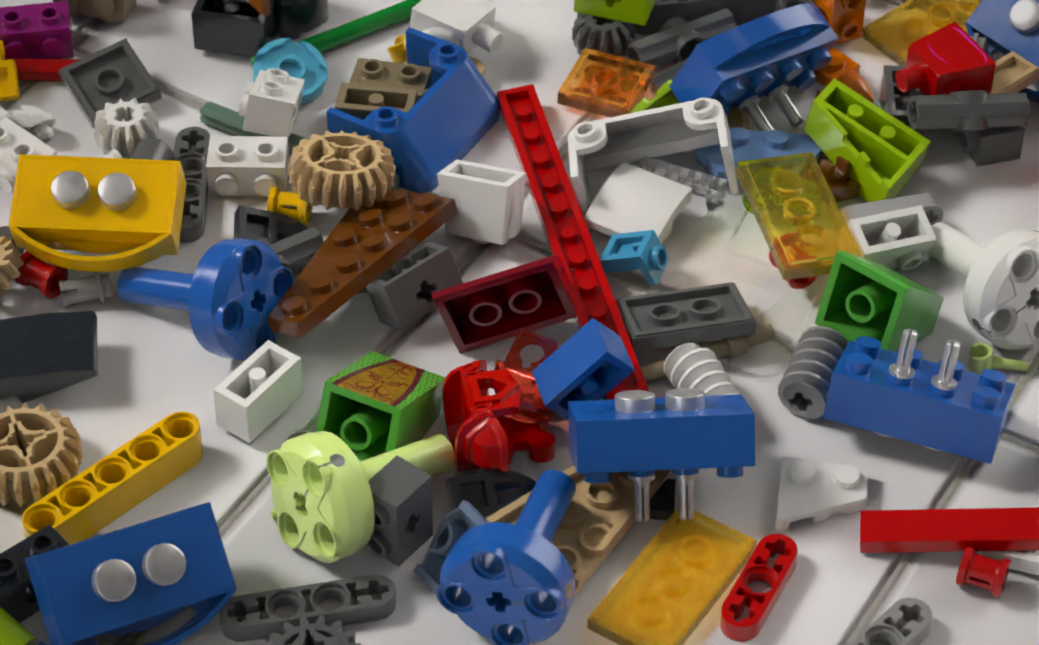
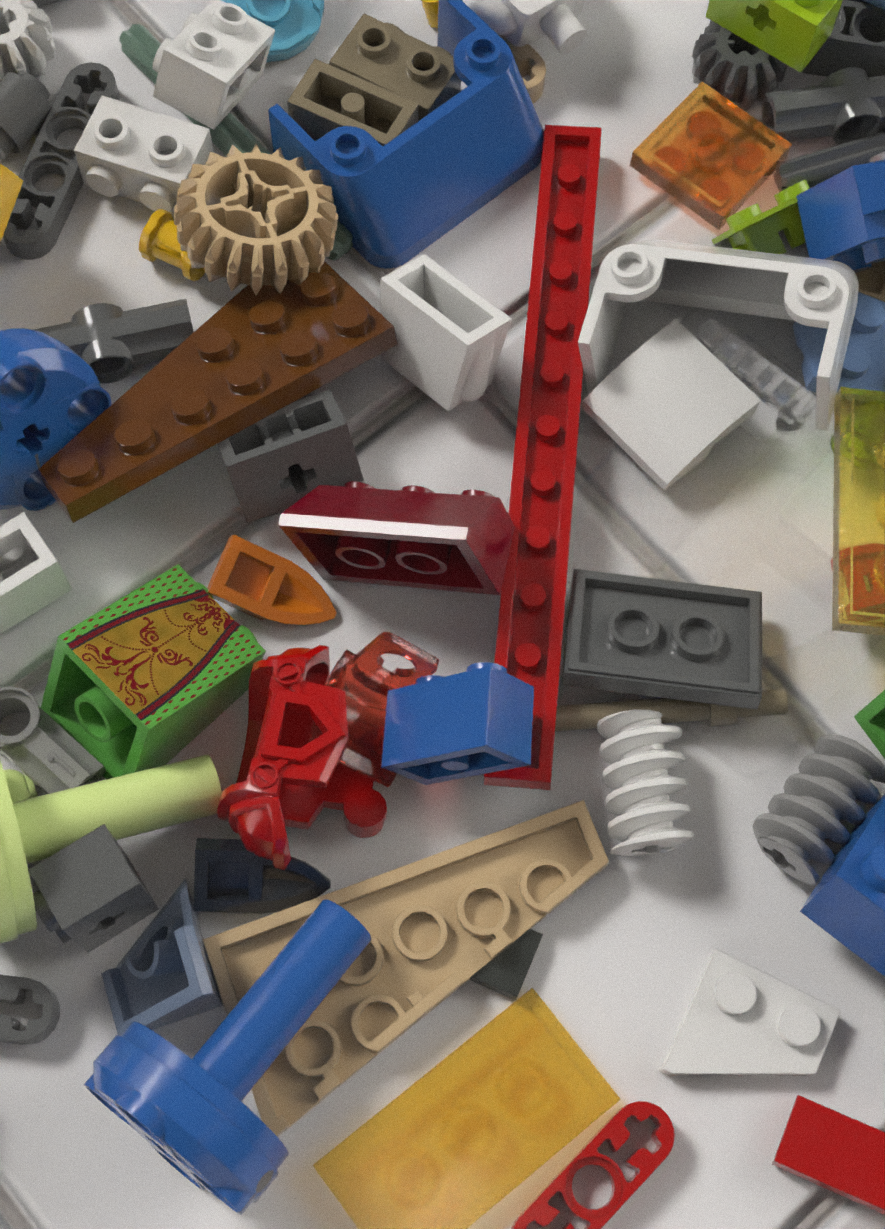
camera: 15 degrees right, 25 degrees up
(263, 224) = (129, 278): black plate -> none
(427, 352) = (268, 586): none -> orange plate
(634, 252) = (633, 496): dark azure bracket -> none
(665, 433) = (527, 900): blue piece -> none

